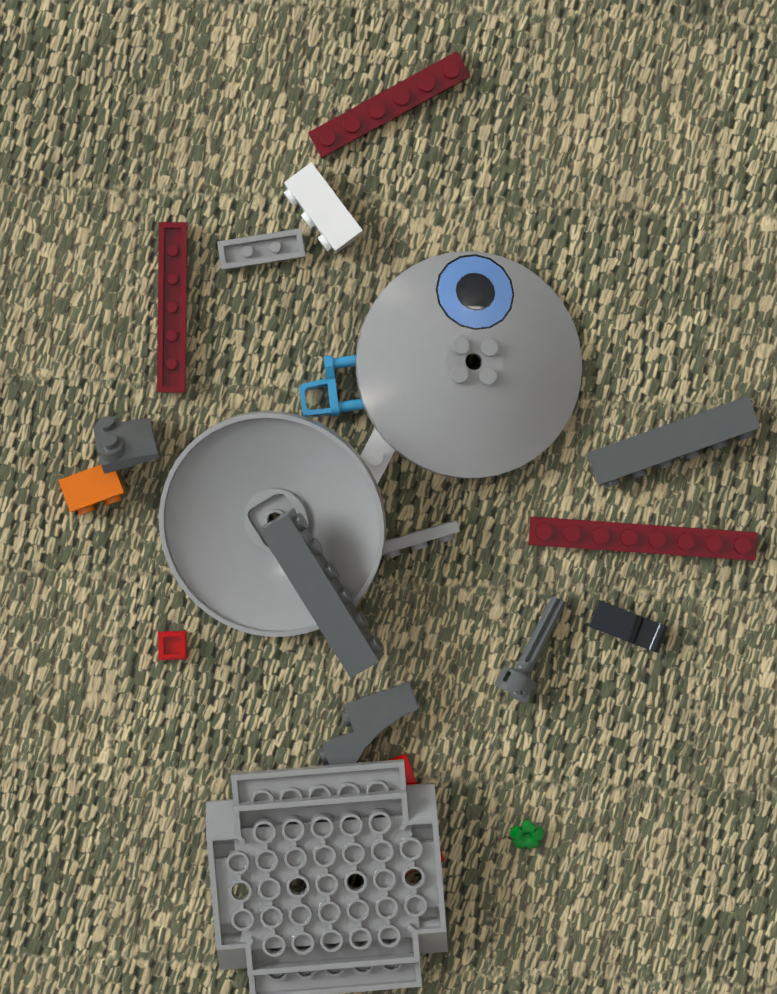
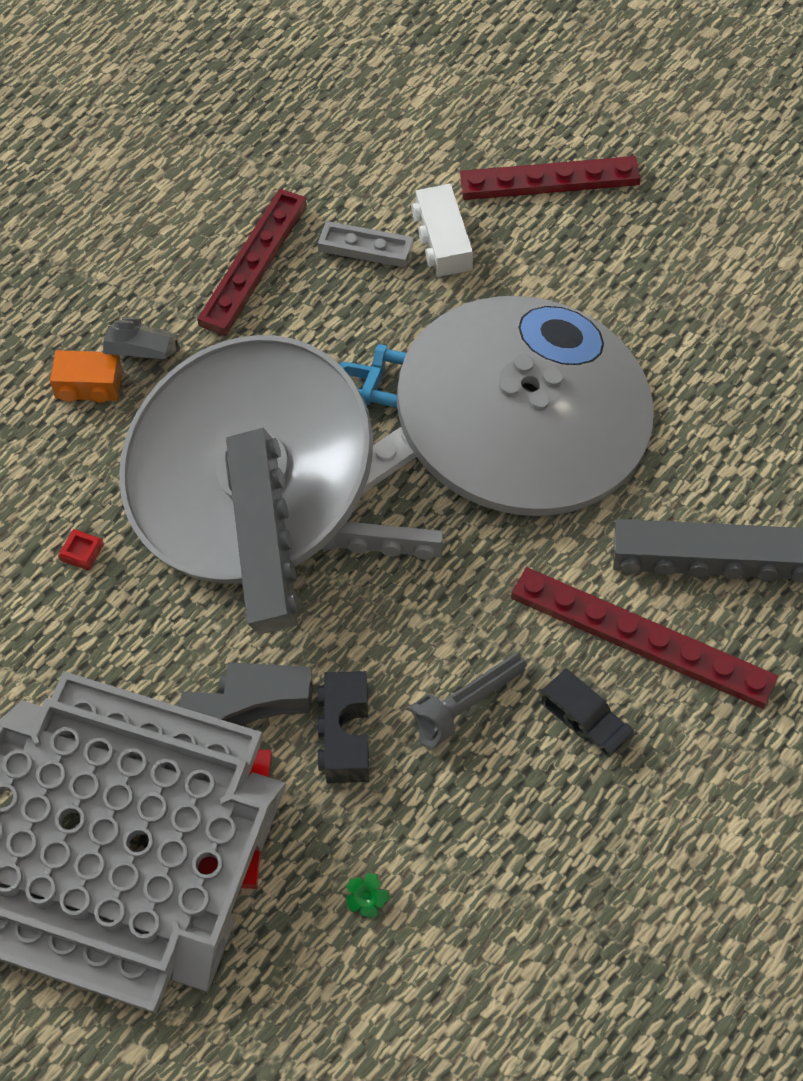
camera: 25 degrees right, 30 degrees down
(461, 737) = (343, 699): none -> black arch

